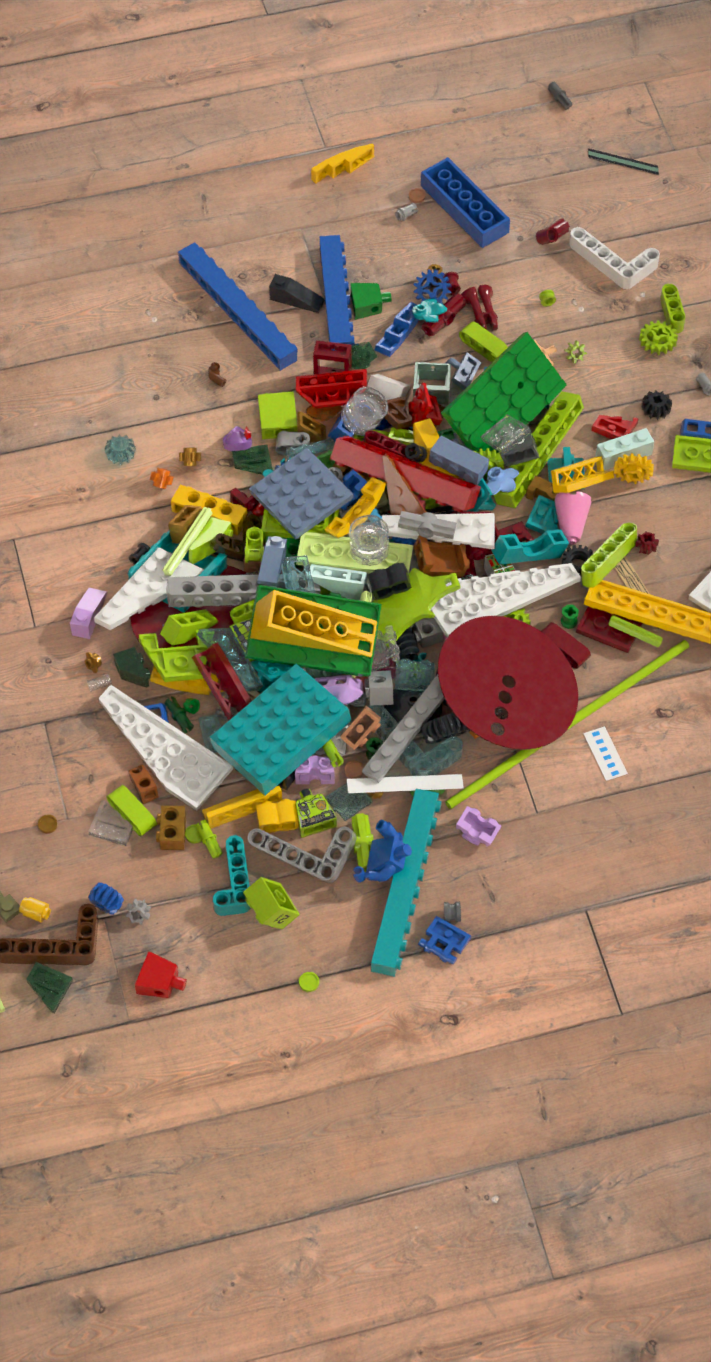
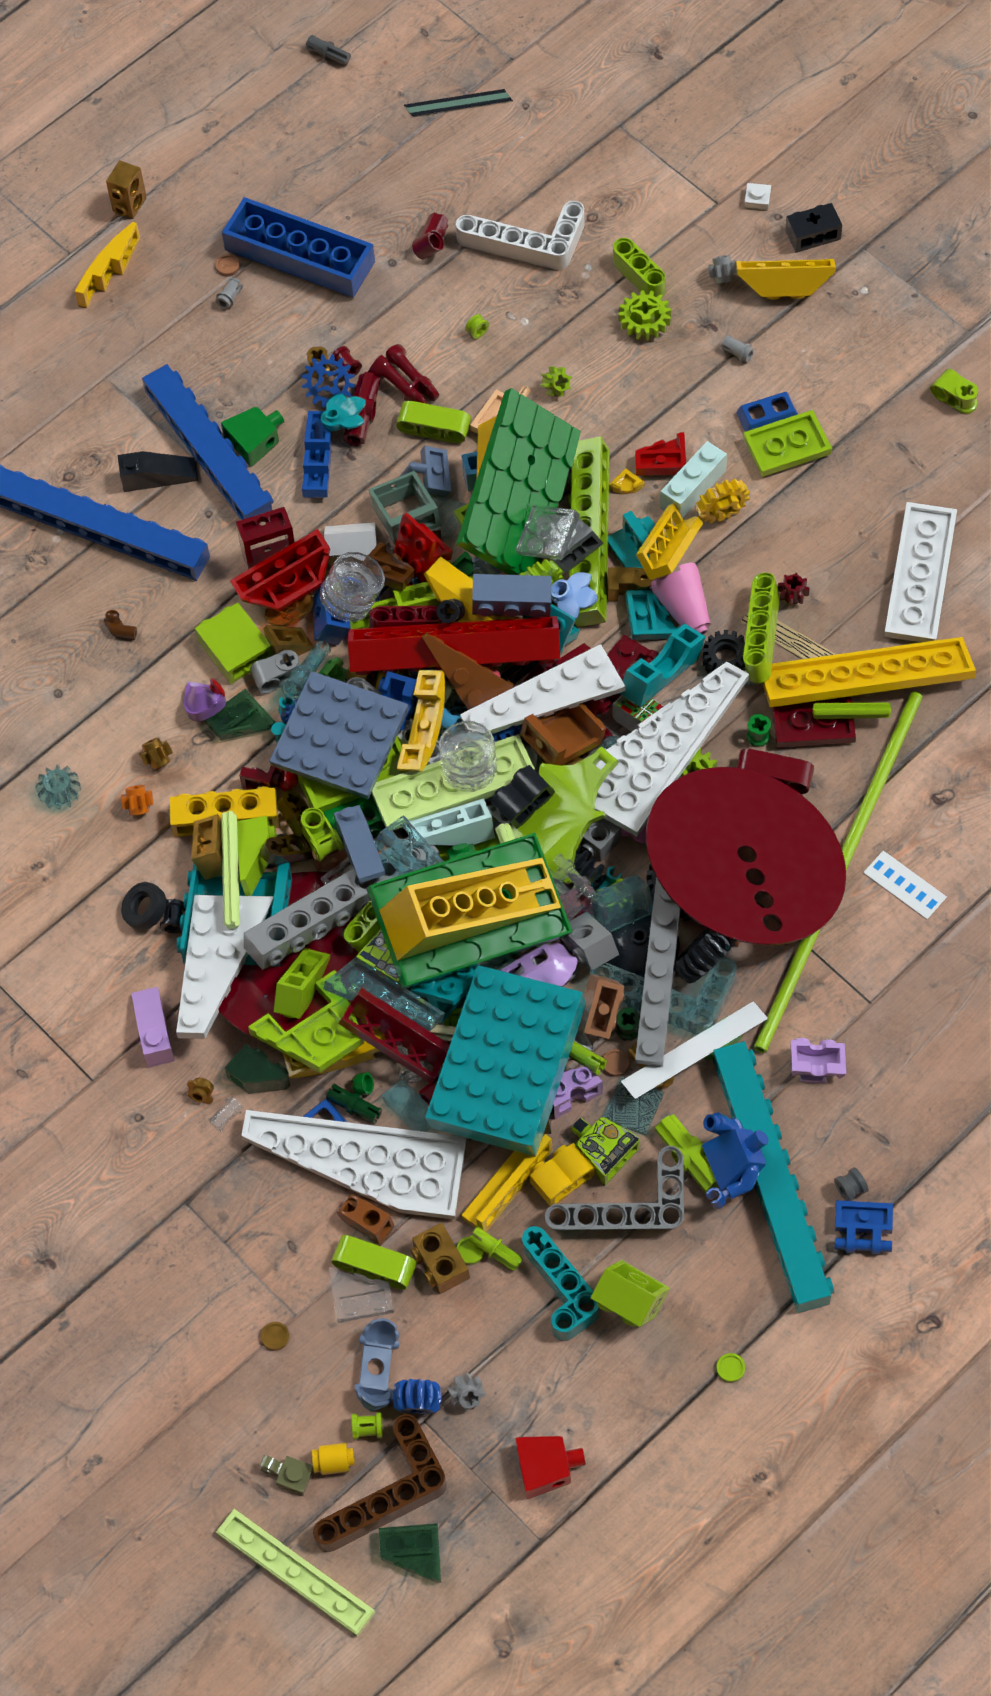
camera: 25 degrees left, 5 degrees up
(67, 901) = (358, 1421): none -> lime bush
(105, 856) = (378, 1341): none -> sand blue piece
(120, 536) = (152, 914): none -> black tyre
(362, 355) = (297, 508): clear green brick -> none
(380, 123) = (126, 189): none -> pearl gold brick
(427, 525) = (530, 700): light grey piece -> none
(582, 433) = (626, 483): none -> yellow tile
(656, 404) = (696, 403): black gear -> none

